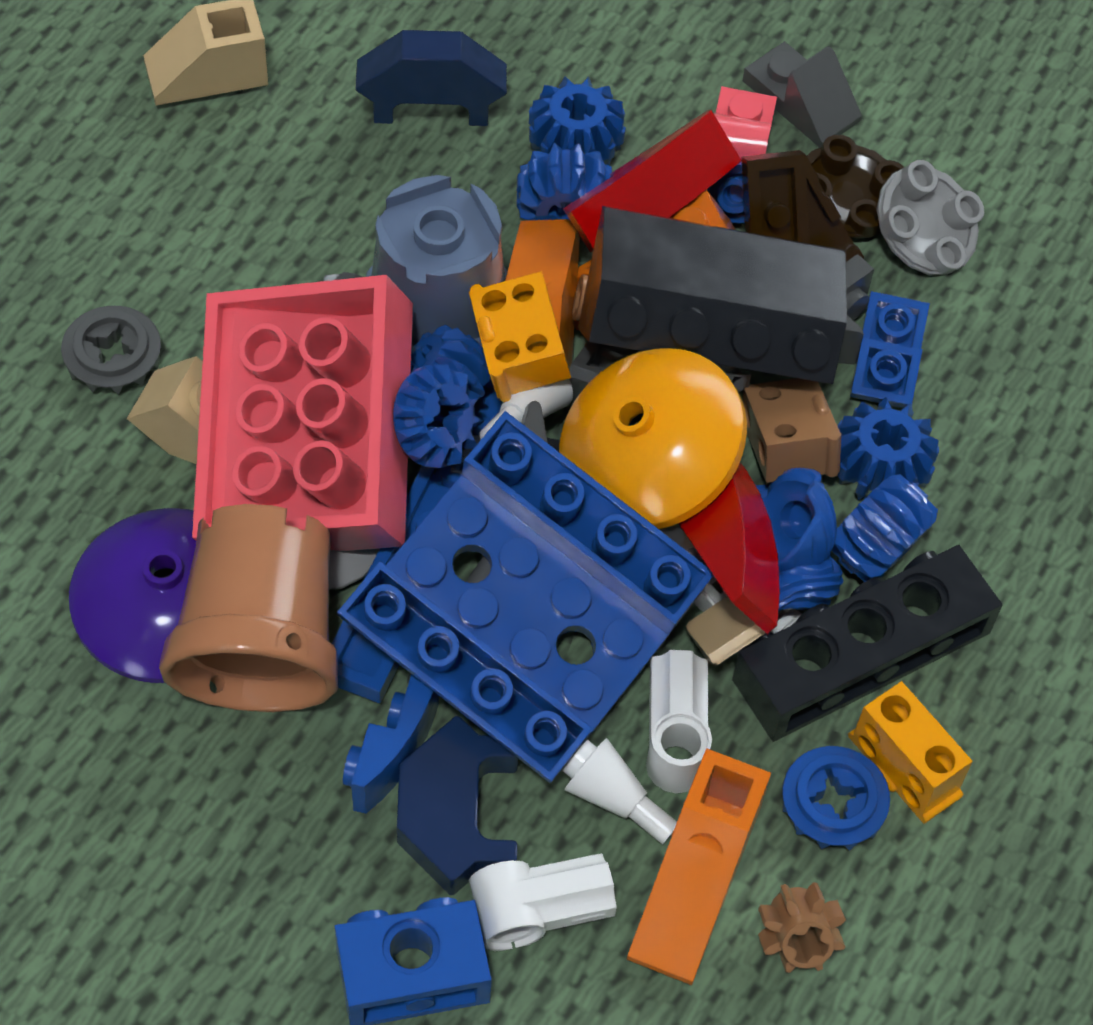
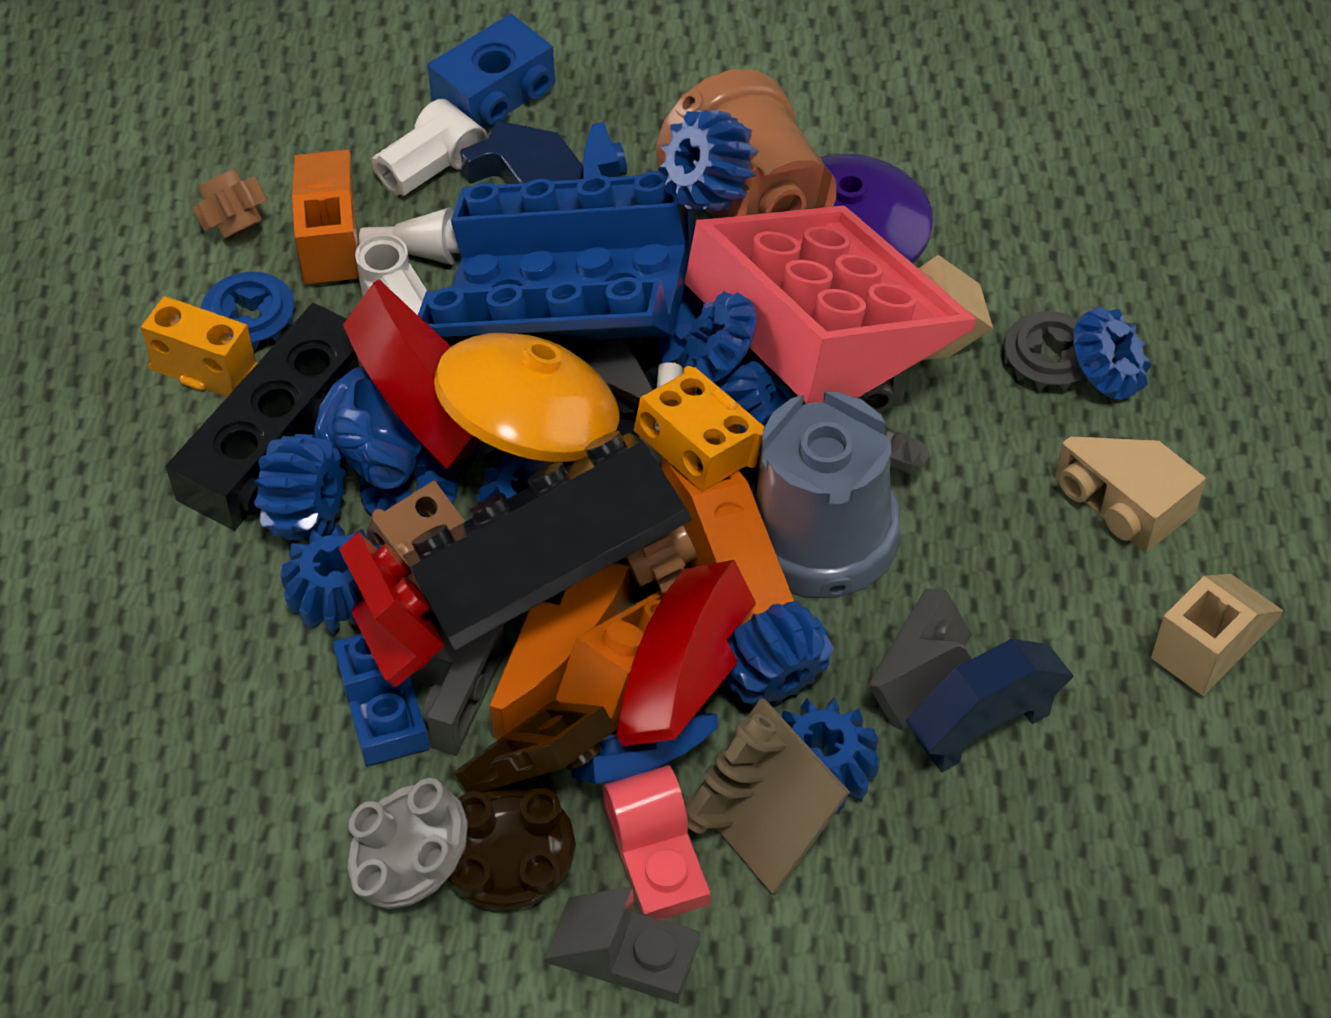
camera: 155 degrees right, 5 degrees down
(71, 303) = (1096, 338): none -> blue gear
(163, 187) = (1131, 484): none -> tan slope
(331, 548) = (708, 160): none -> blue gear
(457, 133) = (920, 656): none -> dark grey slope
(641, 94) = (766, 796): none -> dark tan hinge
(872, 329) = (392, 610): none -> red bracket

